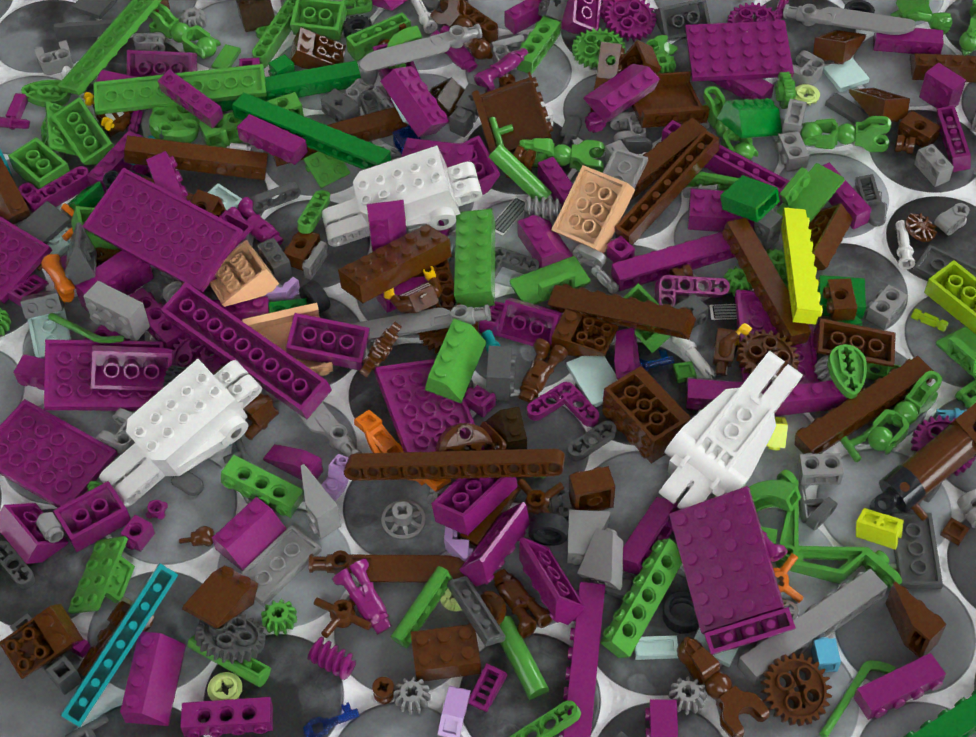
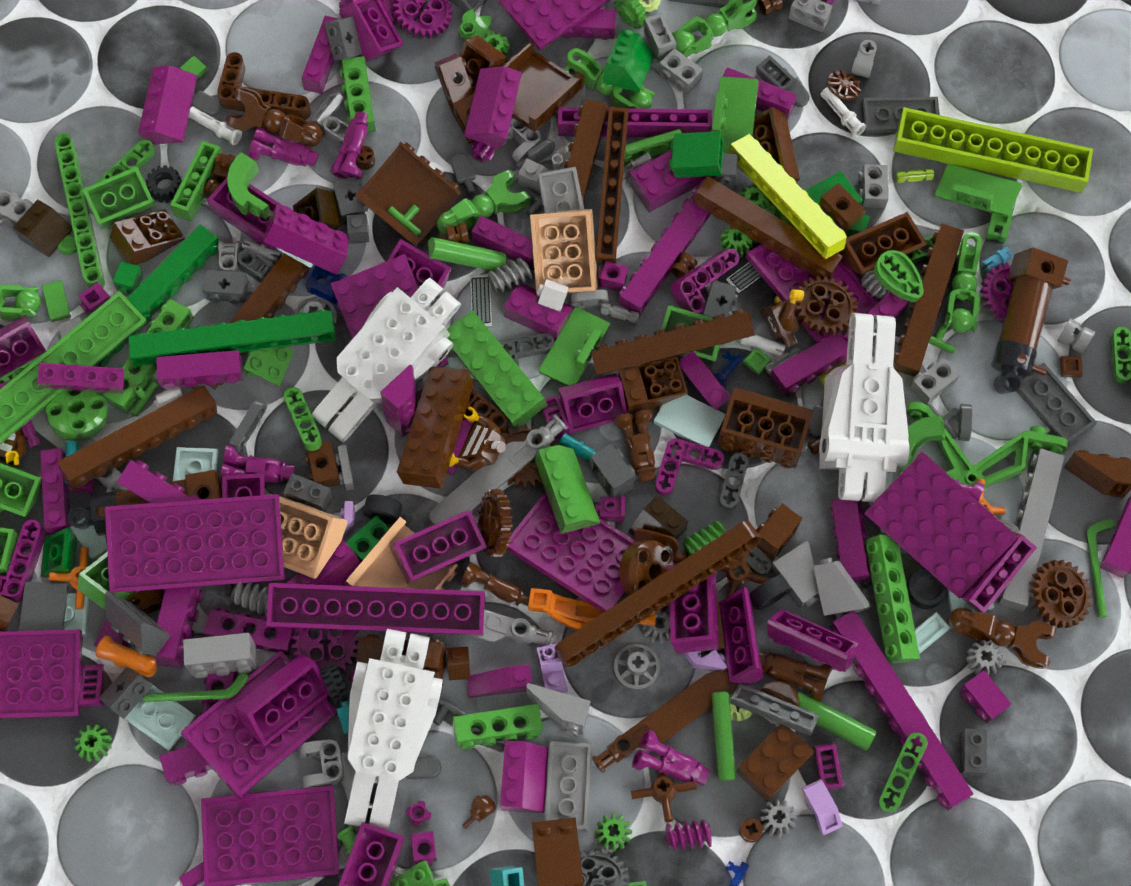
camera: 40 degrees left, 15 degrees up
(274, 428) = (458, 663): none -> reddish brown brick
(336, 376) = (499, 588): none -> reddish brown piece
(419, 48) = (265, 180): light grey piece -> none
(560, 233) = (552, 294): none -> white brick
(587, 47) = (419, 63): bright green gear -> none
(826, 653) = (1058, 546): medium azure brick -> none
(879, 528) = (1019, 405): neon yellow hinge -> none

